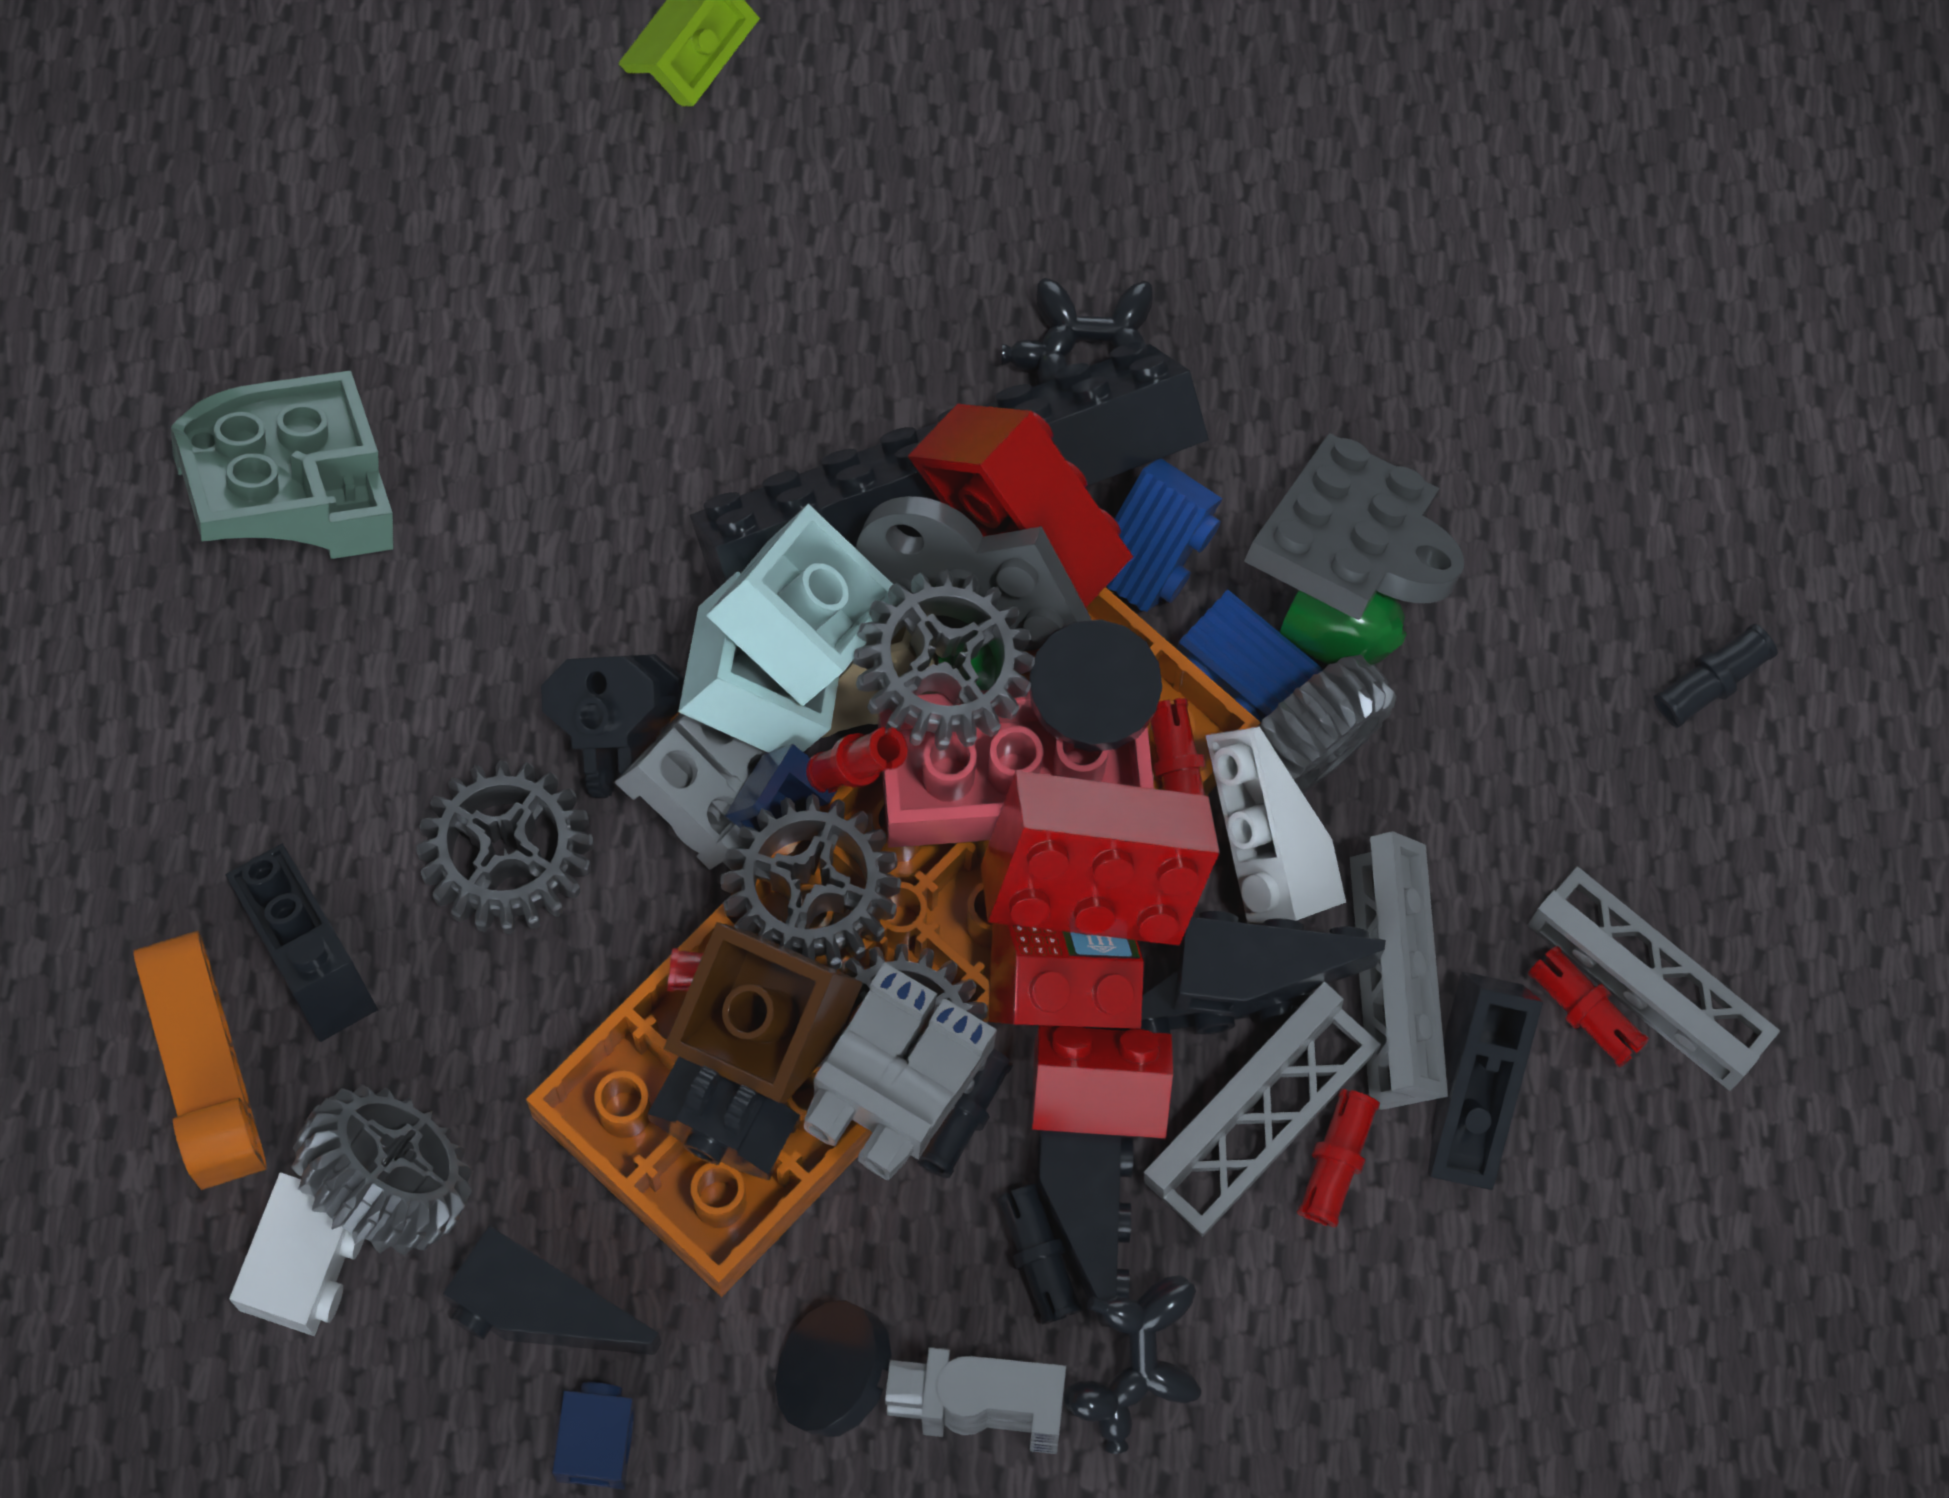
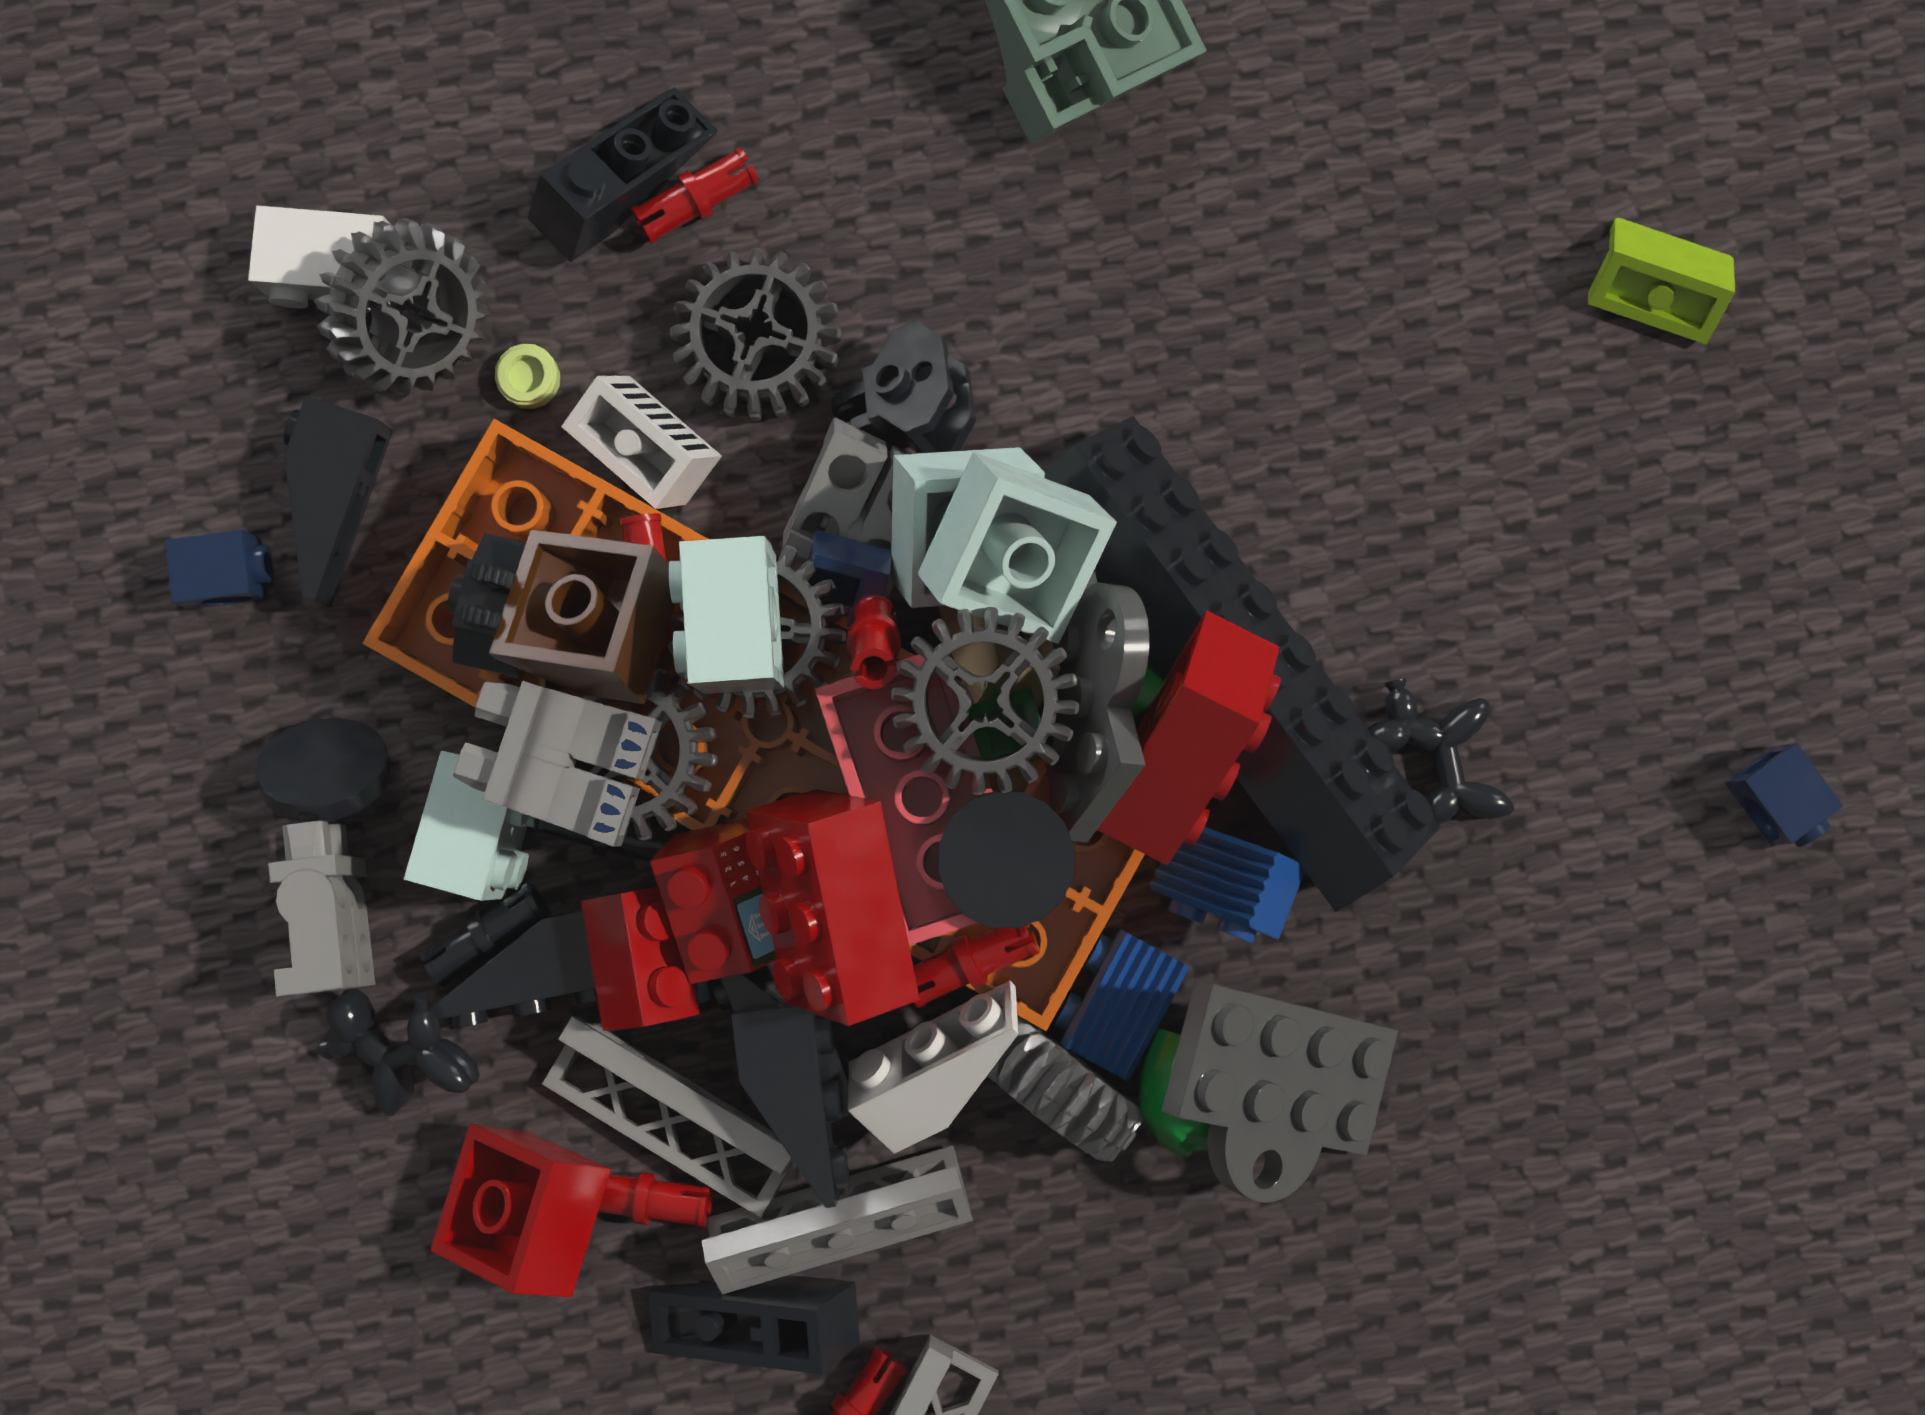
camera: 80 degrees right, 15 degrees up
(200, 1062) = (477, 117): orange beam -> none
(346, 875) = (695, 195): none -> red pin
(479, 1085) = (527, 376): none -> yellowish green tile
(585, 974) = (641, 441): none -> white brick
(803, 868) = (728, 615): none -> light aqua brick
(933, 1223) = (467, 841): none -> light aqua brick
(1191, 56) = (1785, 796): none -> dark blue brick
(1324, 1263) = (520, 1211): none -> red brick

